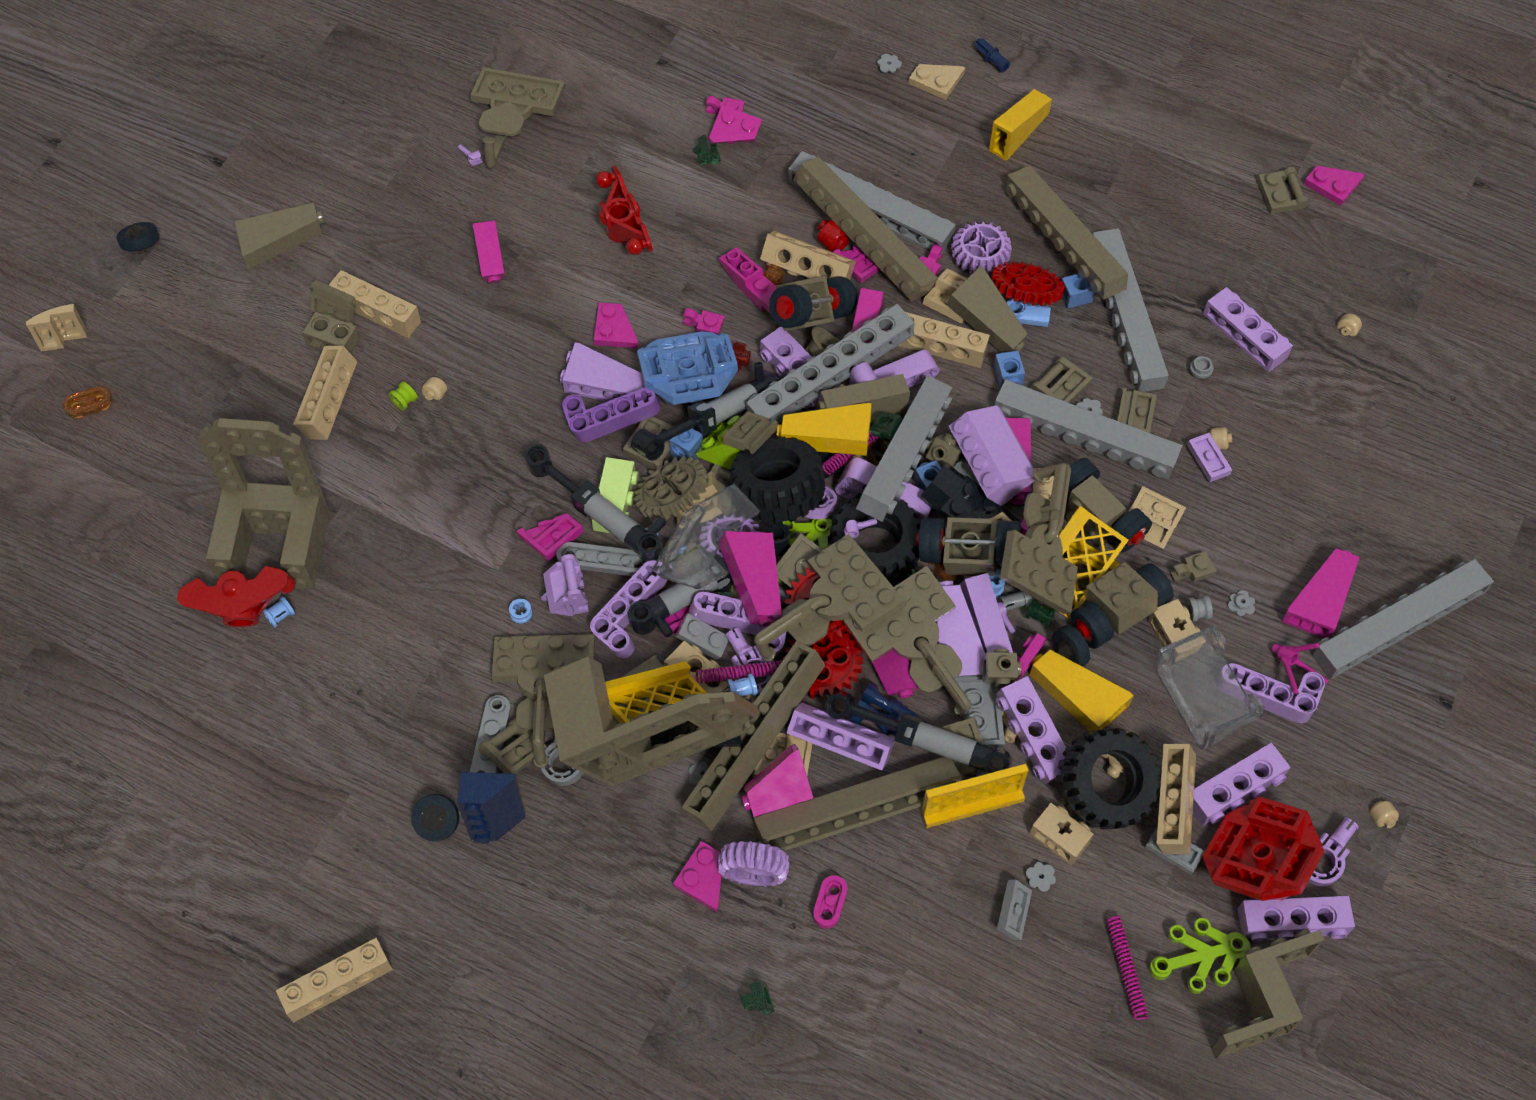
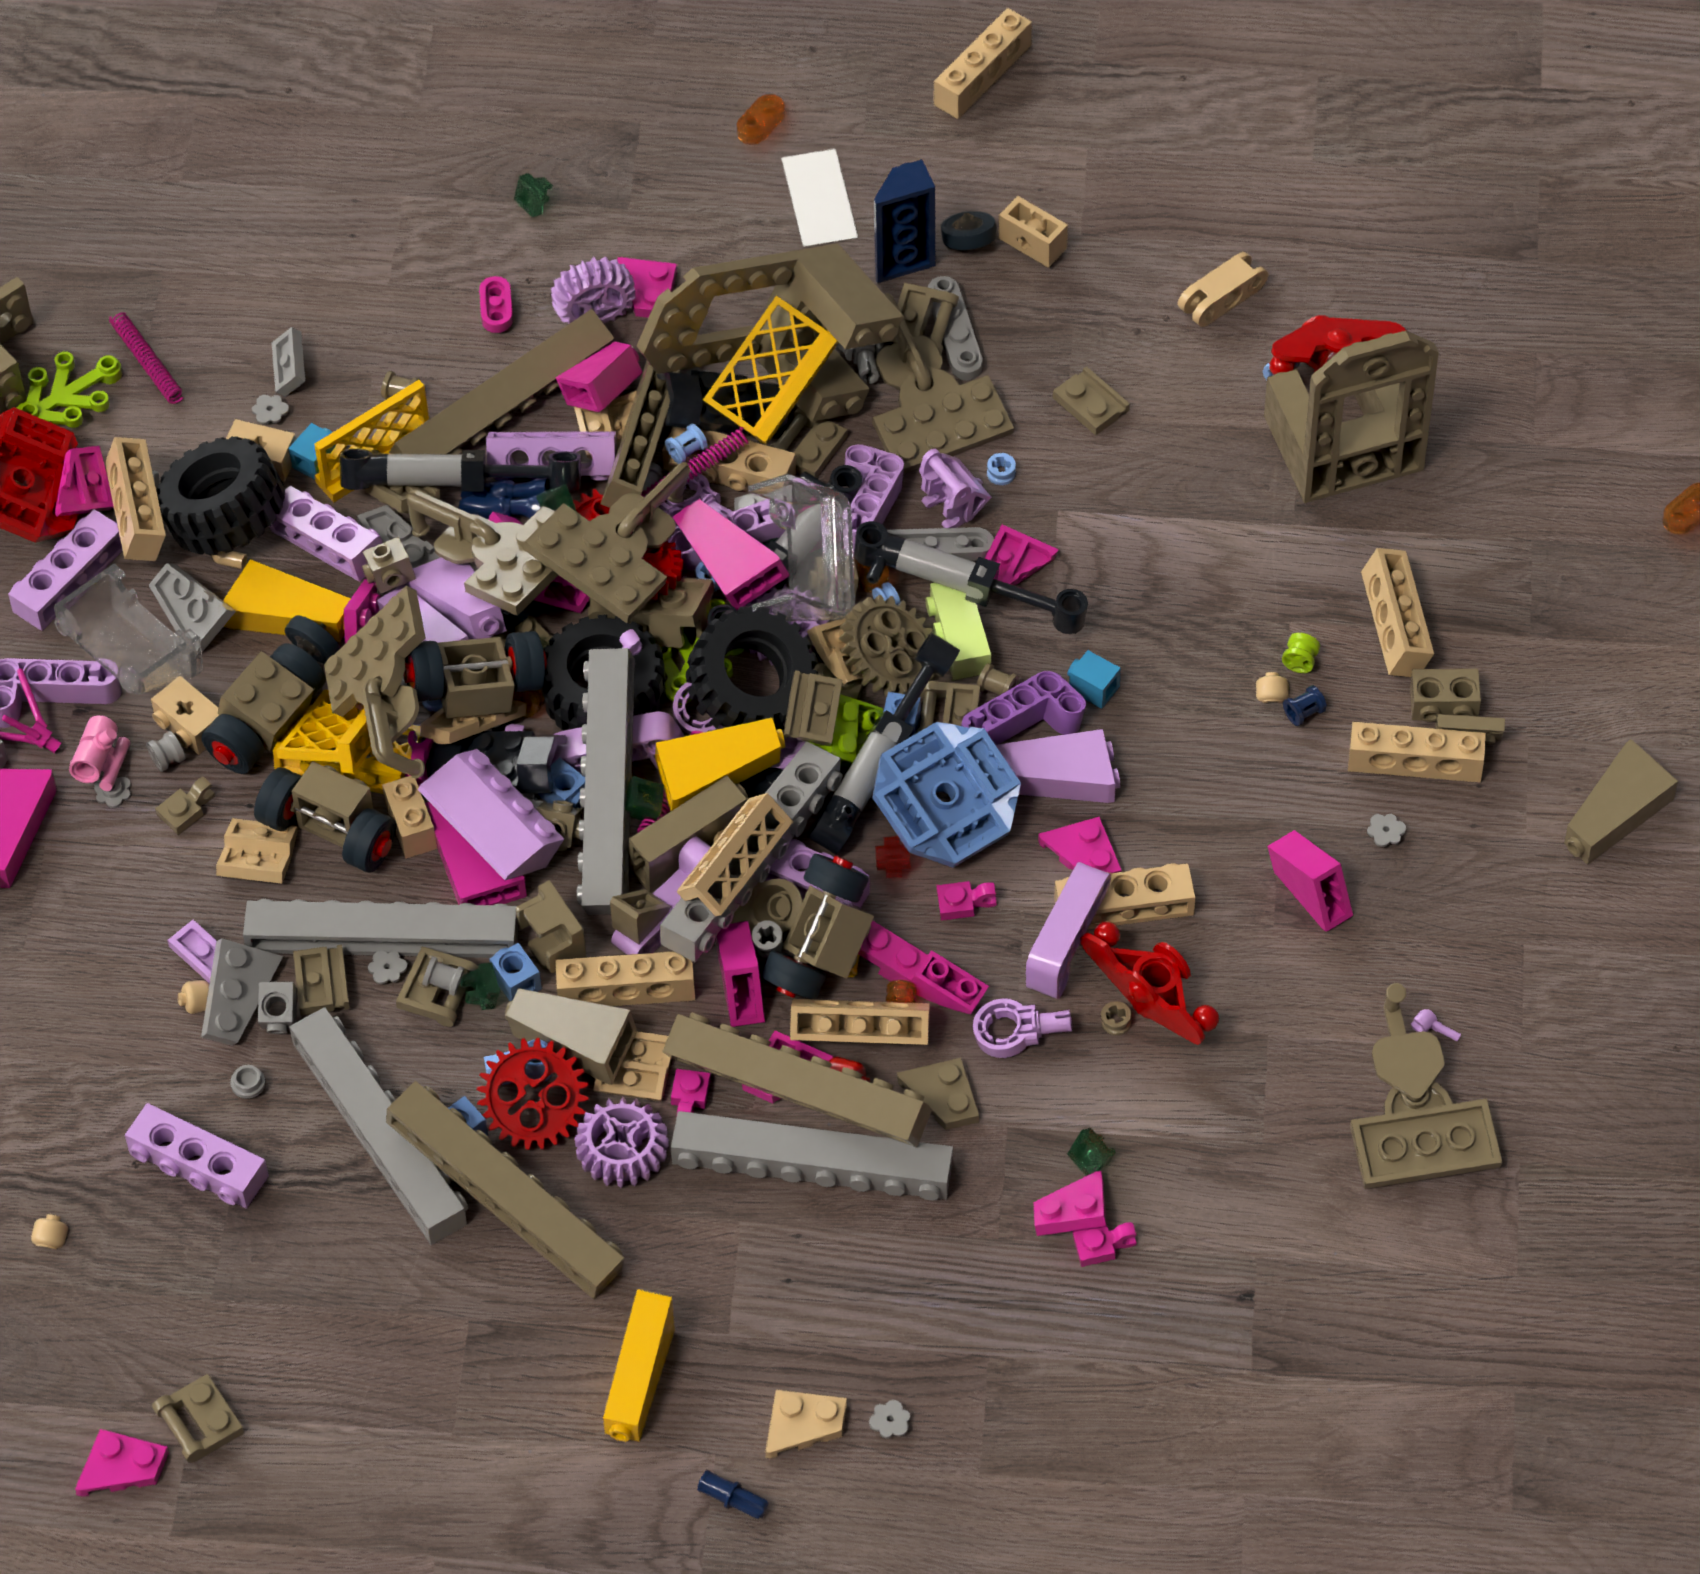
camera: 160 degrees right, 5 degrees down
(280, 690) = (1222, 289): none -> tan piece
(389, 790) = (1033, 231): none -> tan brick
(422, 362) = (1304, 705): none -> dark blue bush
(423, 272) = (1385, 829): none -> light grey plant
(427, 642) = (1090, 401): none -> dark tan plate
(529, 913) = (819, 197): none -> white sticker
(540, 1009) = (764, 115): none -> clear orange plate
(545, 427) = (1094, 678): none -> dark azure brick
(608, 448) = (995, 680): none -> dark tan bush
(623, 285) = (1144, 904): none -> tan brick
(654, 217) = (1122, 1011): none -> dark tan bush
(670, 247) = (1073, 912): none -> lavender beam
(707, 228) = (1028, 1029): none -> lavender pin
(775, 216) = (945, 1091): none -> dark tan wing
(843, 321) = (766, 929): none -> light grey bush
(848, 347) = (725, 848): none -> tan fence
(857, 675) = (556, 497): none -> clear green tile
(919, 358) = (637, 913): none -> dark tan slope
(933, 850) = (393, 384): none -> dark tan bush
(974, 373) = (555, 925): none -> dark tan panel
(1018, 816) = (303, 450): none -> dark azure brick
(1032, 366) = (486, 986): none -> clear green tile
(1058, 372) = (443, 976): none -> light grey bush
(1152, 709) = (190, 603): none -> light grey wing
(1170, 399) = (274, 992): none -> light grey brick
(1196, 421) = (235, 989): none -> light grey wing
(1212, 837) = (83, 483): none -> dark pink wing
(1249, 618) = (97, 754): none -> bright pink pin

